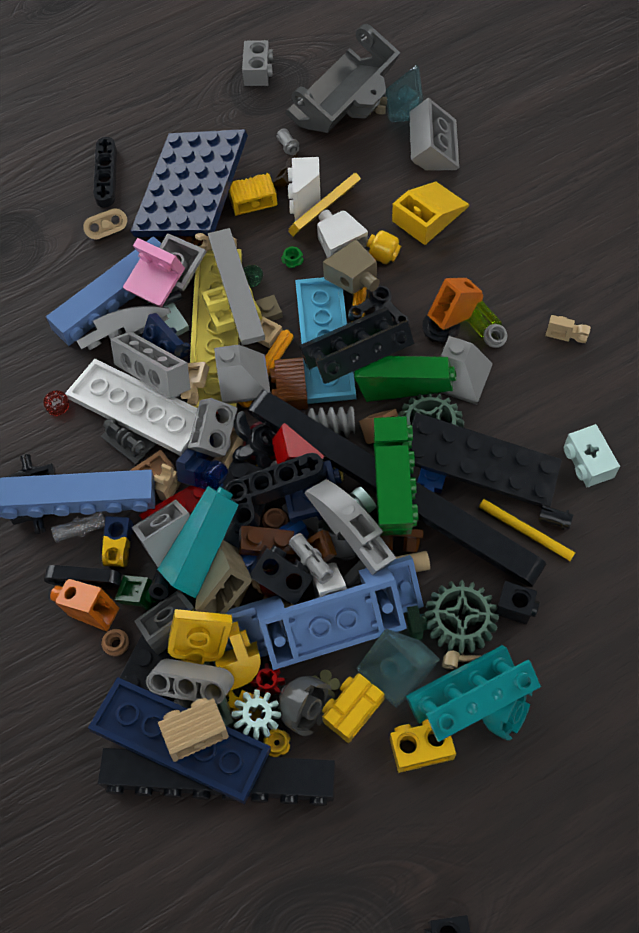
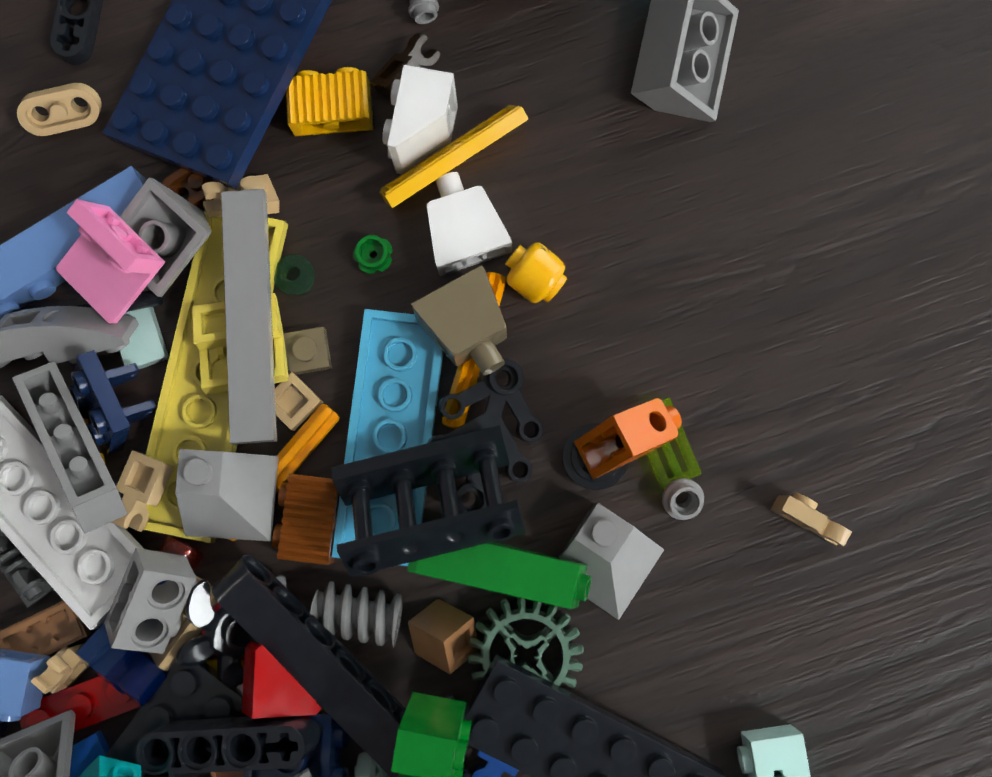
camera: 15 degrees right, 20 degrees up
(427, 211) = (635, 209): yellow slope -> none

